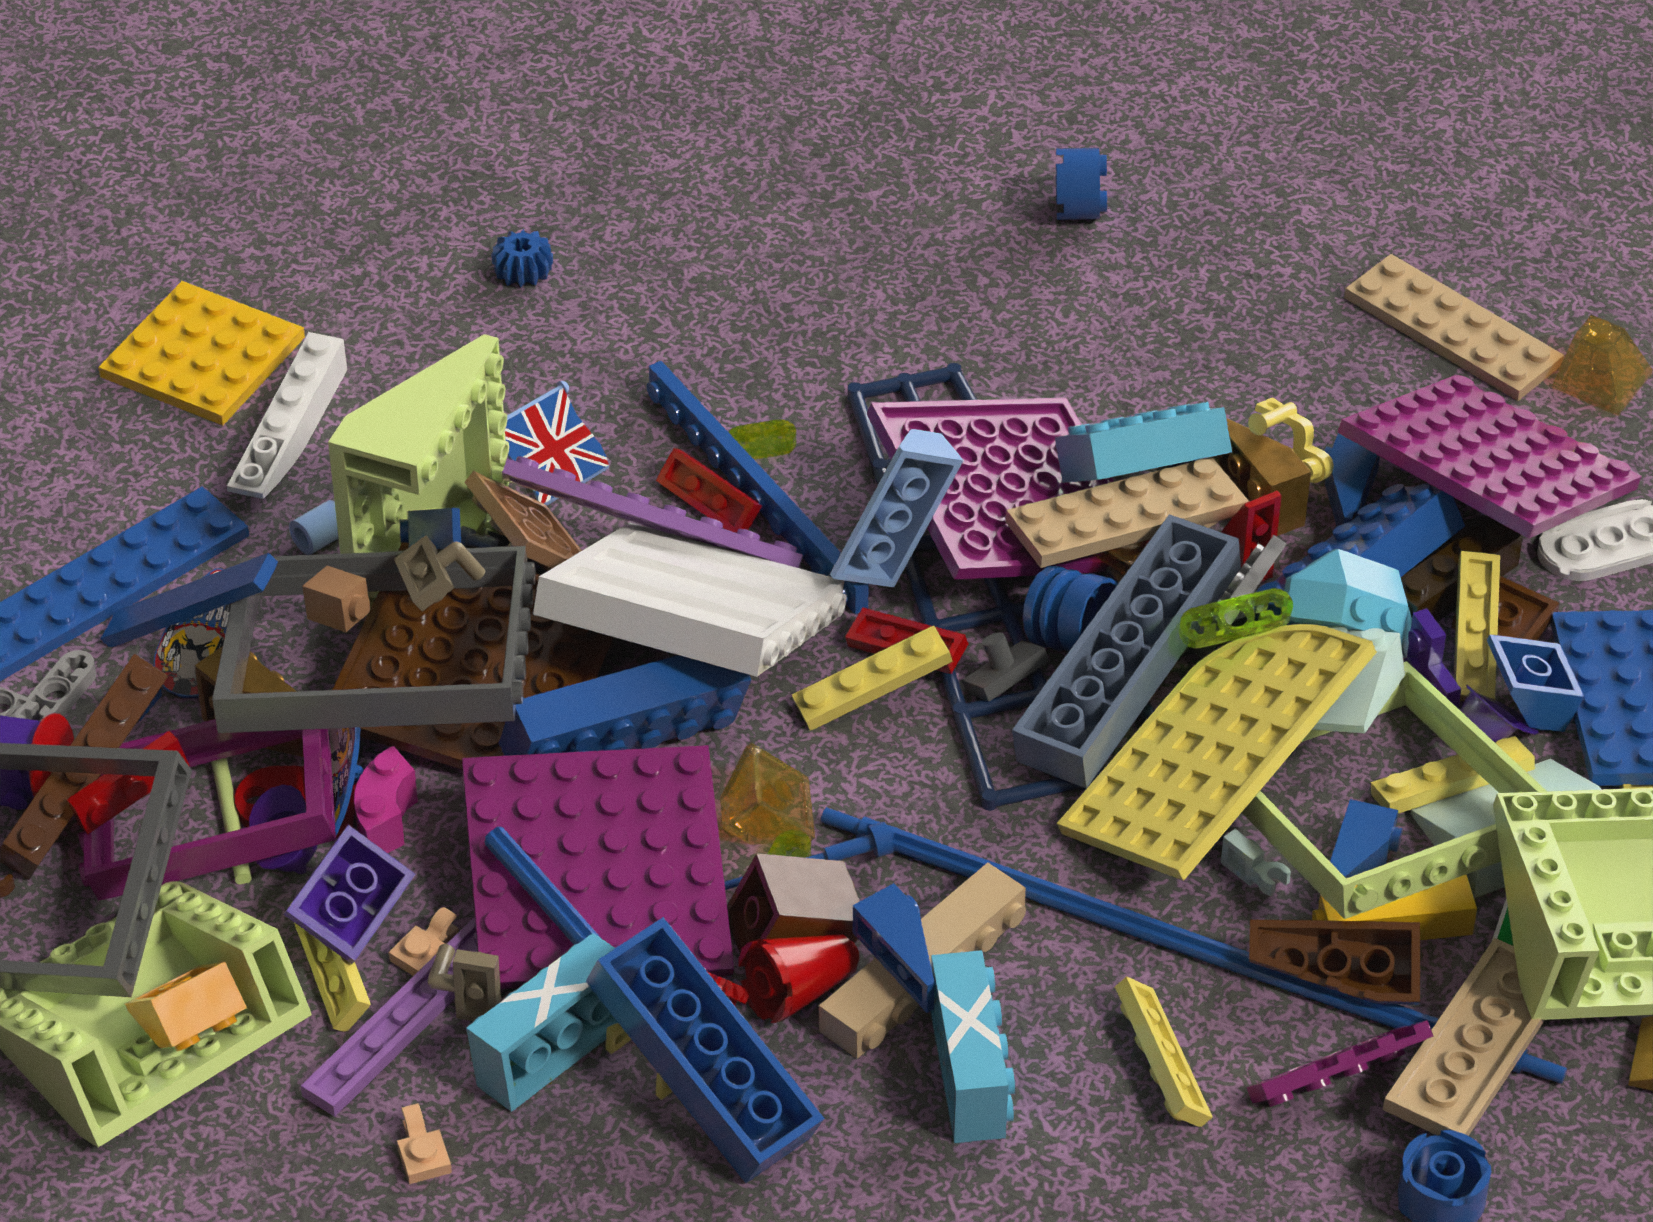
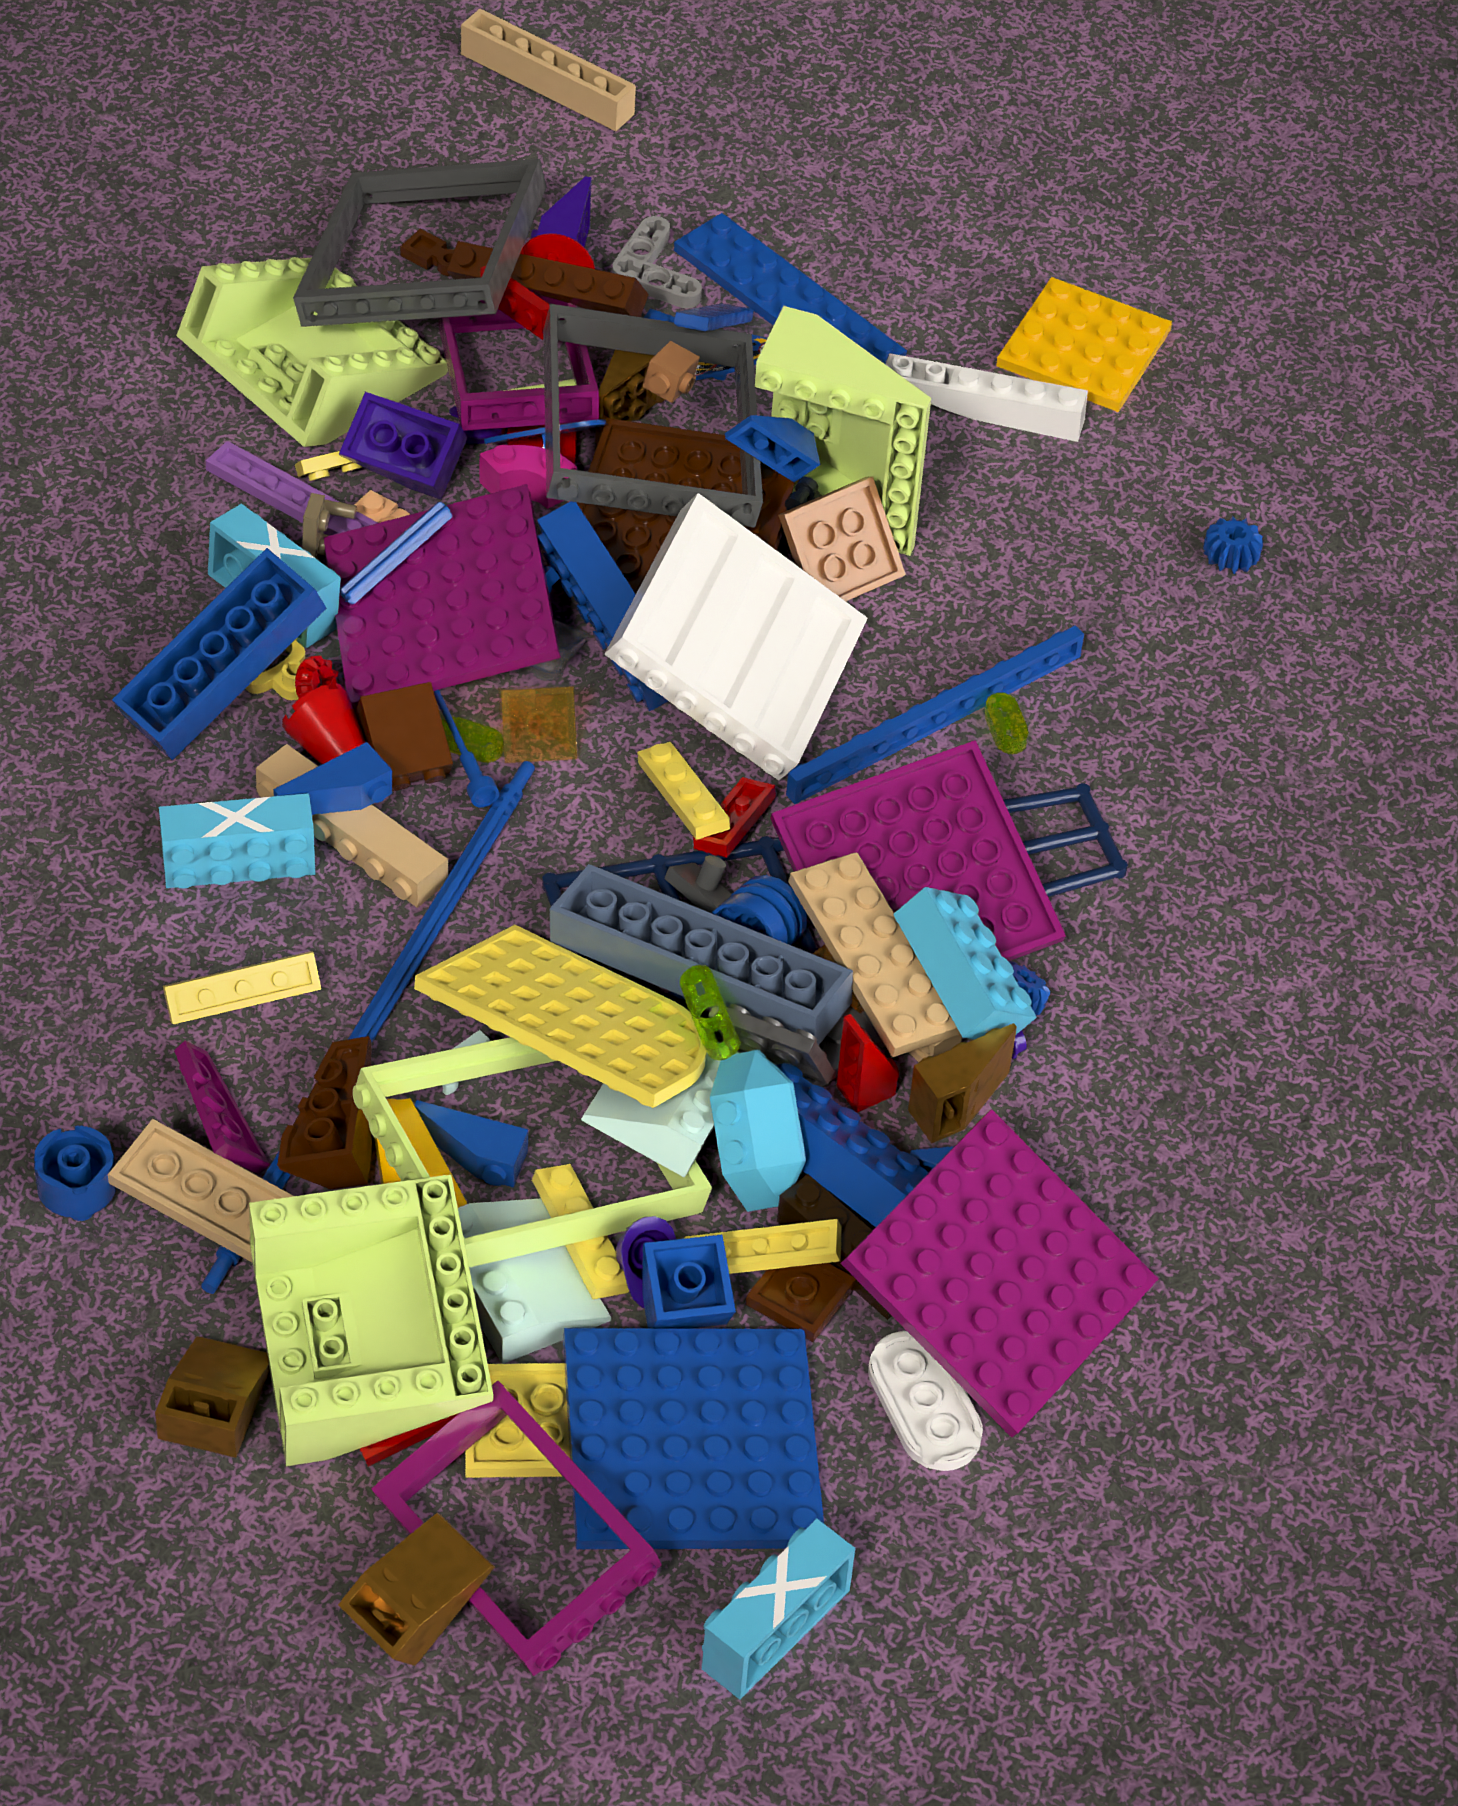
camera: 85 degrees right, 5 degrees up
(188, 1006) = (282, 352): light orange slope -> none
(421, 1152) = (167, 522): light nougat plate -> none
(425, 570) = (712, 423): dark tan plate -> none
(540, 431) = (986, 574): flag -> none
(637, 510) = (859, 622): medium lavender plate -> none
(707, 491) = (924, 681): red plate -> none
(899, 510) = (835, 751): light blue slope -> none
(1080, 183) = (1395, 957): blue brick -> none
(1274, 413) = (1003, 1100): light yellow piece -> none
(1426, 654) = (722, 1208): dark purple plate -> none
(1454, 327) = (1241, 1289): tan plate -> none
(1602, 366) = (1184, 1414): clear yellow slope -> none

